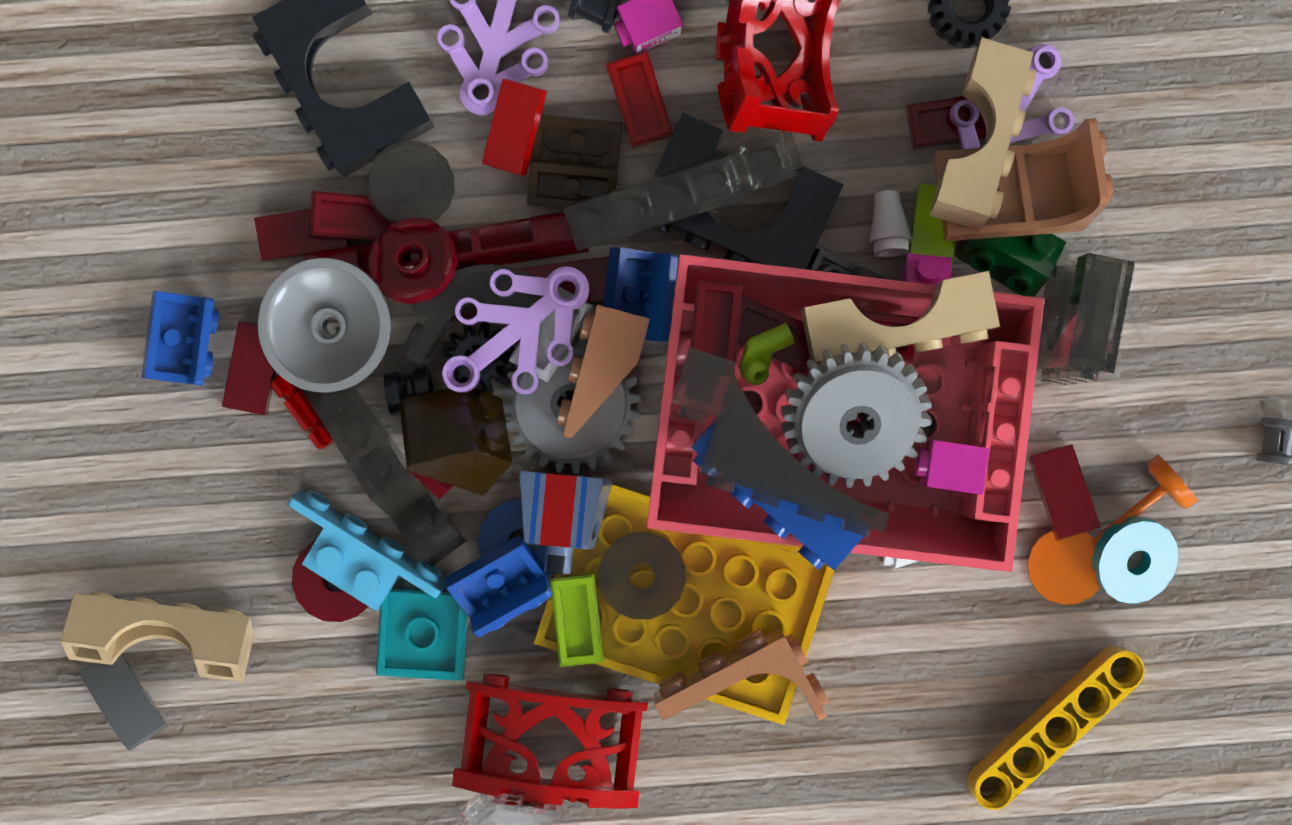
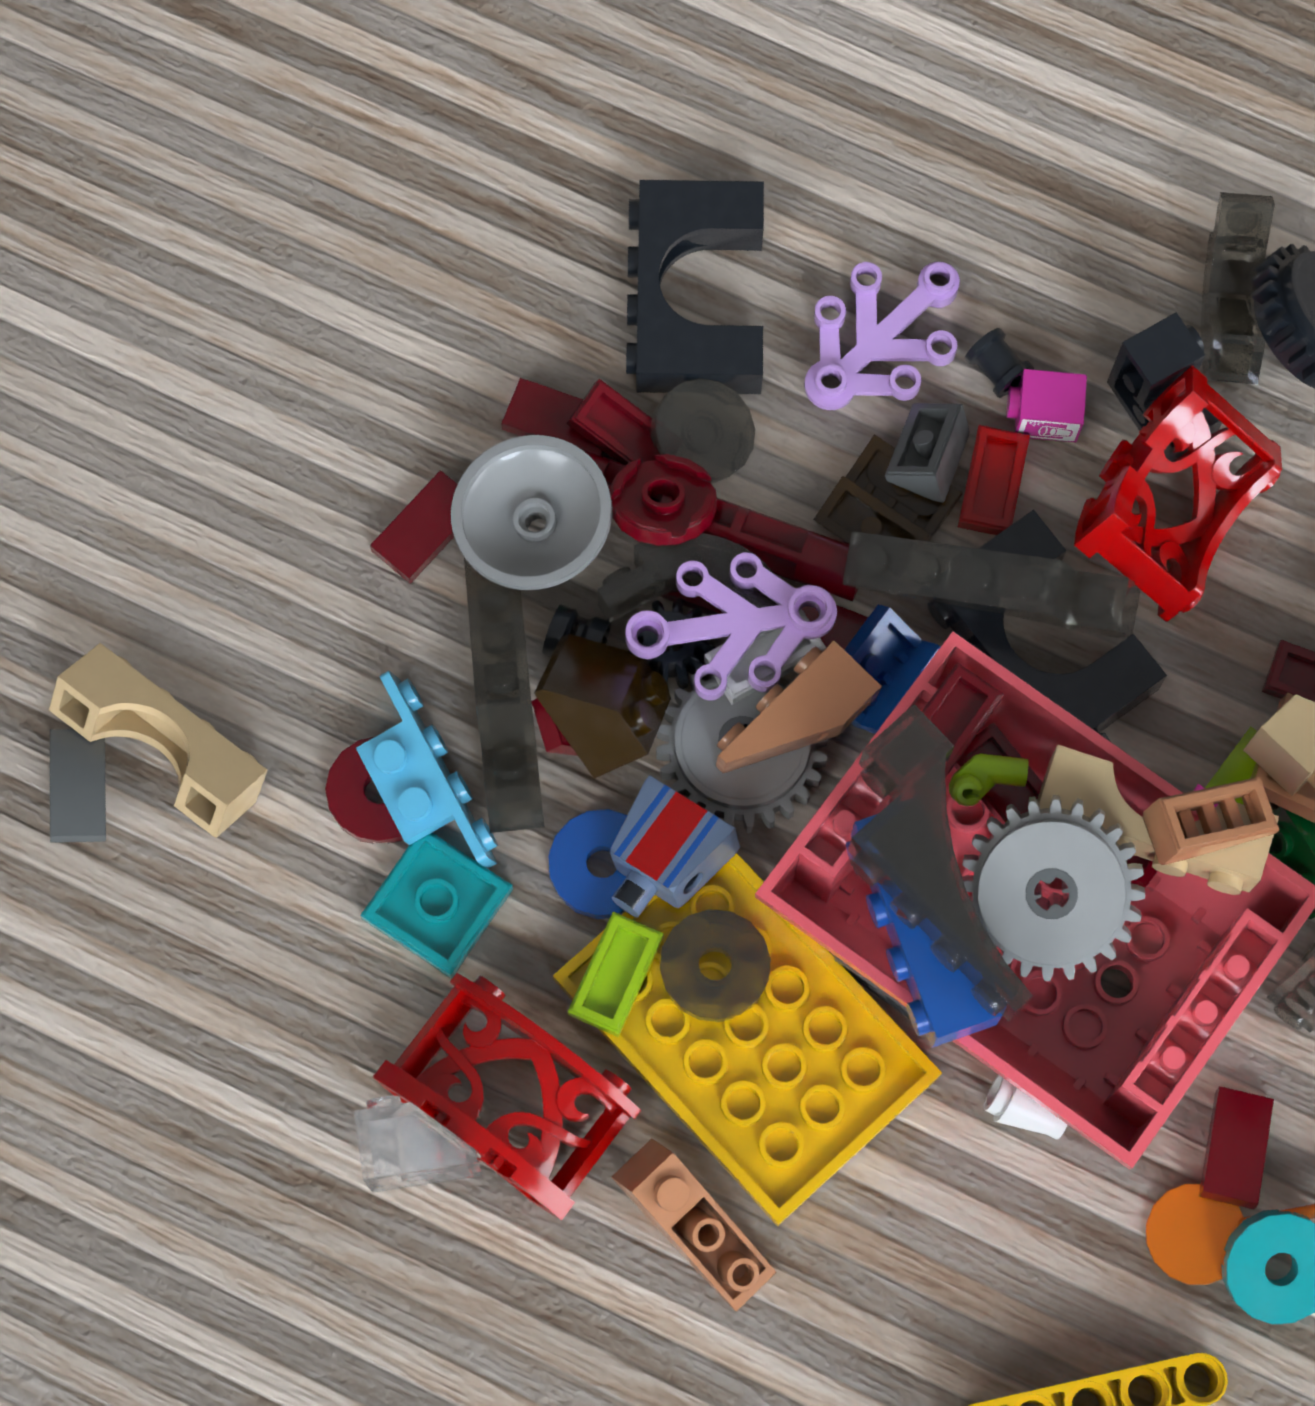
camera: 30 degrees right, 15 degrees down
(179, 338) = (369, 452): blue bracket -> none
(302, 412) = (452, 597): red axle -> none
(500, 586) = (554, 887): blue bracket -> none
(514, 127) = (846, 433): red tile -> none
(581, 105) = (929, 449): none -> dark grey slope
(724, 755) = (693, 1223): none -> nougat slope
(756, 655) = (795, 1112): nougat bracket -> none
(889, 226) = (1193, 752): white cone -> none
(922, 335) = (1175, 831): none -> nougat slope
(952, 466) = (1127, 1007): dark pink brick -> none

